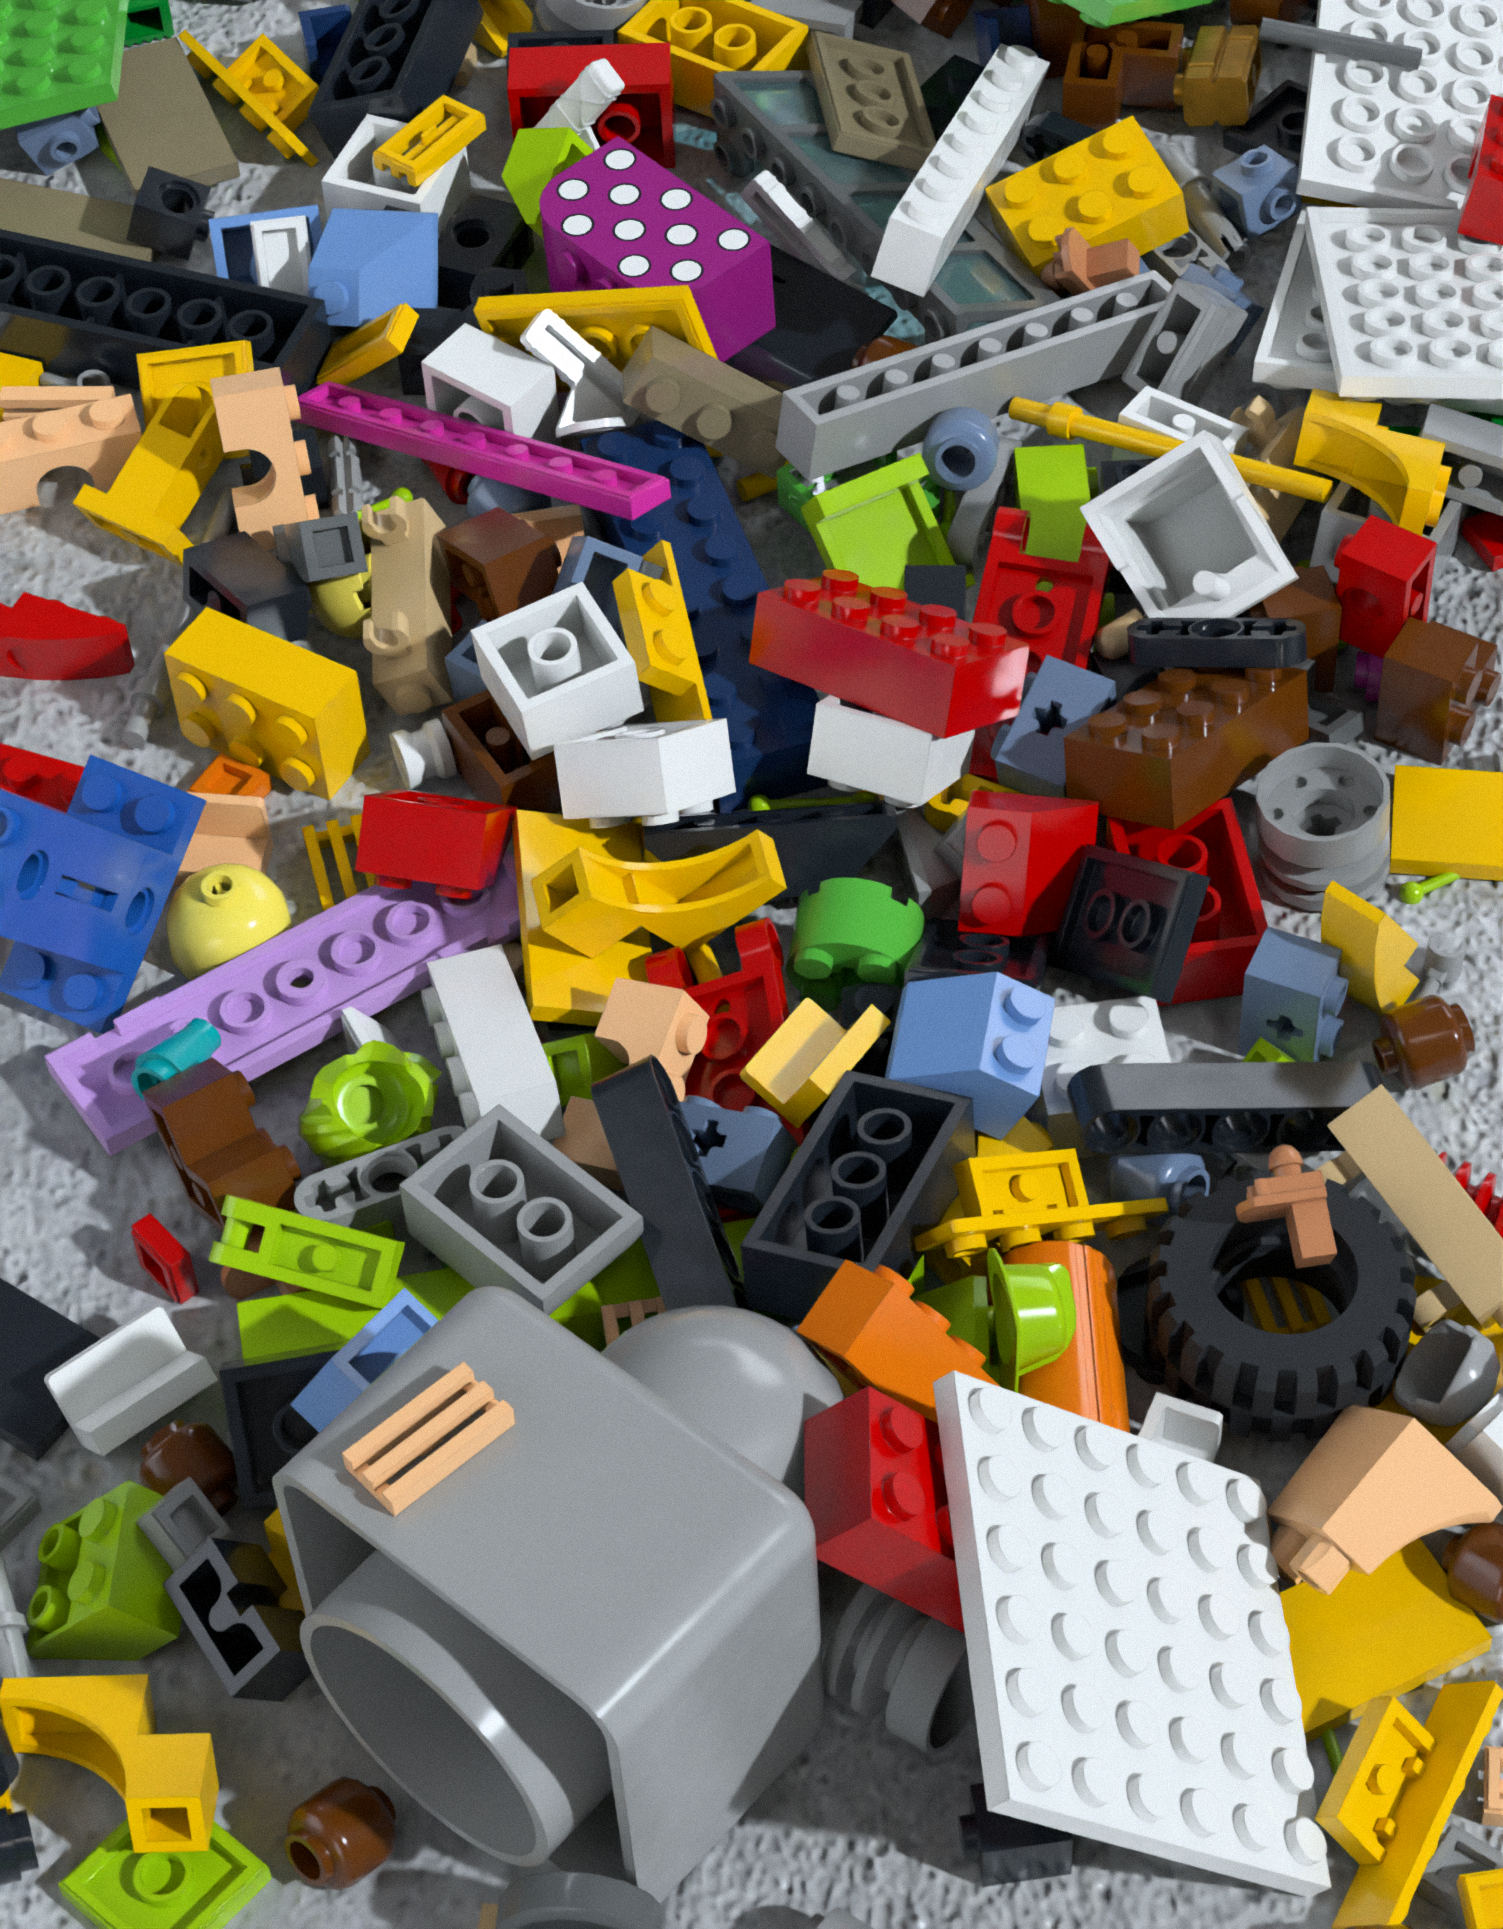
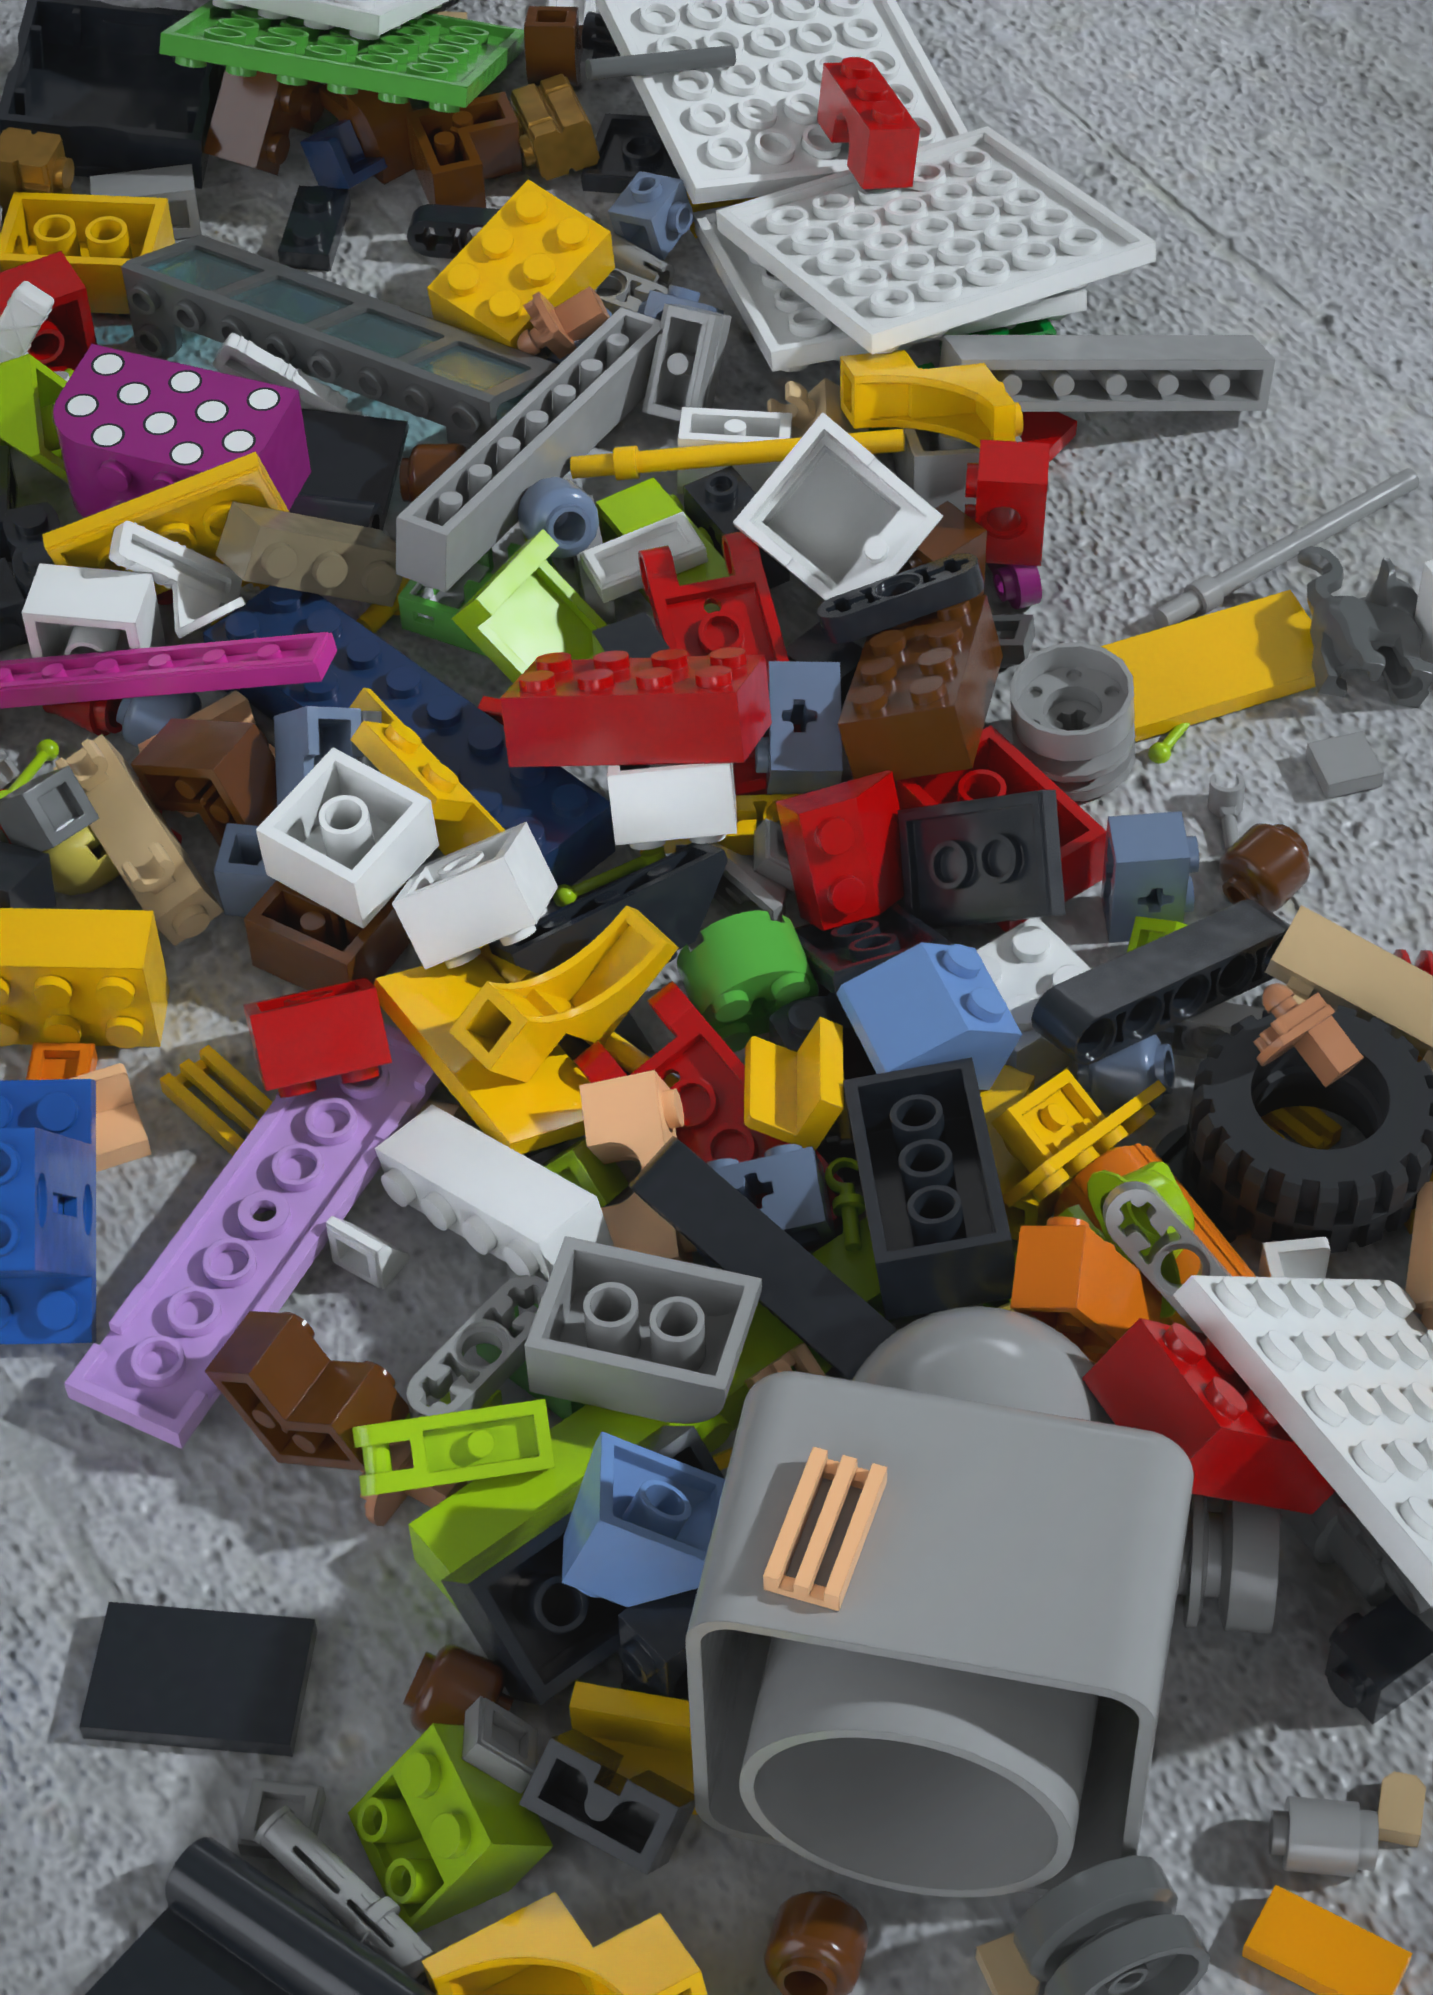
camera: 30 degrees left, 0 degrees up
(127, 1381) = (346, 1644): white panel -> none
(164, 1259) = (300, 1517): red tile -> none
(175, 1054) = (204, 1331): teal cone -> none
(222, 916) = (147, 1191): light yellow cylinder -> none
(368, 1103) = (410, 1299): lime hair -> none
(423, 754) = (231, 968): white wheel -> none
(870, 101) = (267, 247): dark tan tile -> none
(959, 170) = (402, 277): white brick -> none
(1014, 1312) = (1133, 1240): none -> light grey beam
(1051, 507) = (615, 564): none -> white tile
(1112, 638) = (802, 624): tan piece -> none
(1371, 950) = (1197, 790): yellow slope -> none
(1432, 689) = (1081, 578): reddish brown brick -> none

